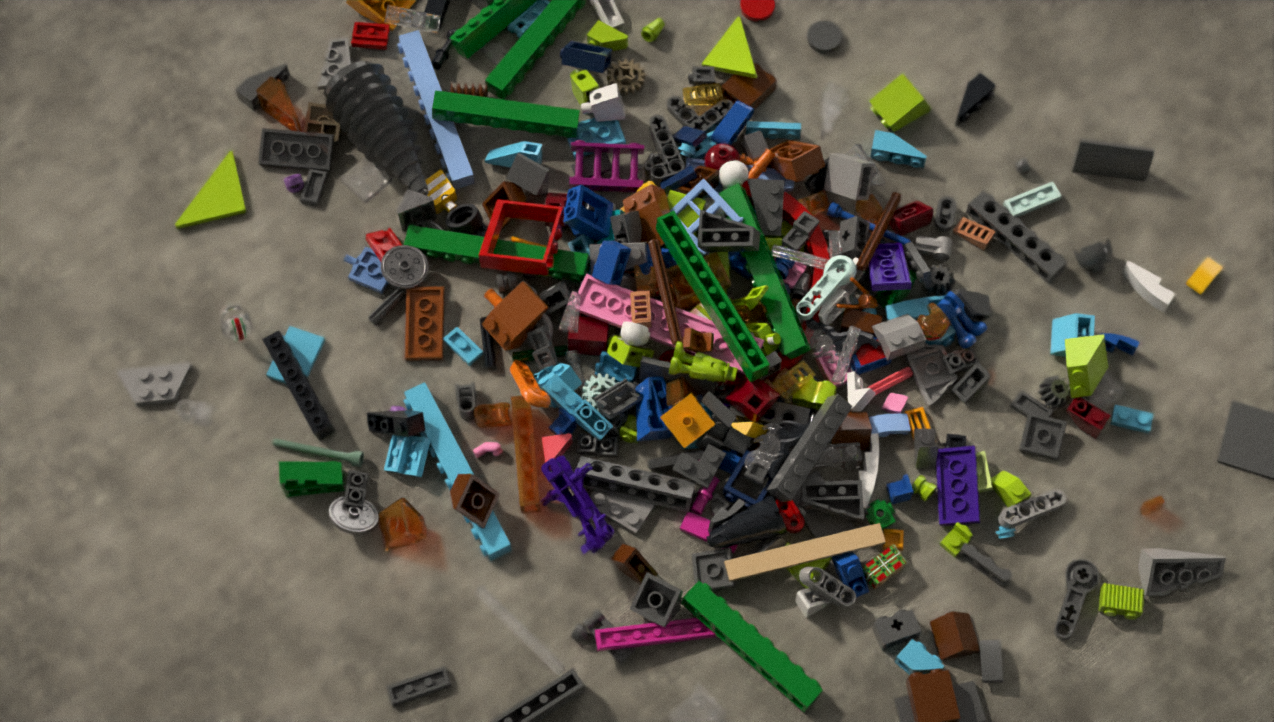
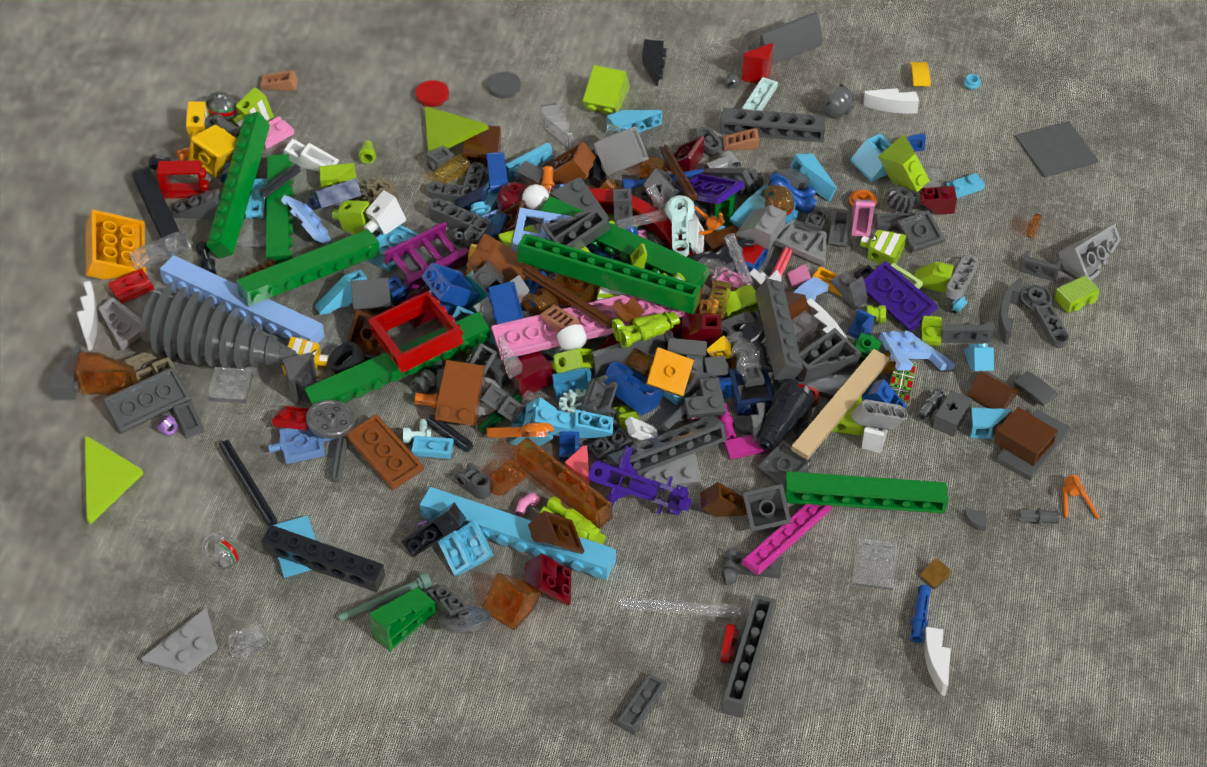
camera: 40 degrees left, 15 degrees down
(308, 276) = (248, 483): none -> black axle
(317, 44) = (89, 316): none -> white slope
(443, 530) = (549, 577): none -> dark red slope
(468, 329) = (423, 431): none -> light aqua piece
(506, 504) = (583, 526): none -> lime piece
(530, 685) = (731, 636): none -> red plate
(549, 65) = (311, 221): none -> light blue wing
(553, 14) = (279, 181): none -> black axle
(559, 180) = (397, 289): none -> blue bracket
(628, 454) = (640, 431): none -> white slope
(886, 607) = (929, 405): none -> dark grey pin
(919, 540) = (908, 346): none -> light blue wing
(965, 597) = (980, 357): none -> medium azure slope
(992, 388) = (862, 217): none -> bright pink slope
(995, 430) = (884, 246): none -> lime torso
(1002, 303) = (819, 179): none -> medium azure slope
(1028, 363) = (862, 194): none -> orange gear
(1058, 166) = (757, 64): none -> red slope
(1061, 557) = (1005, 323): none -> dark grey slope
(1117, 549) = (1040, 268): none -> dark grey hinge
(1245, 317) = (972, 81): none -> medium azure plate

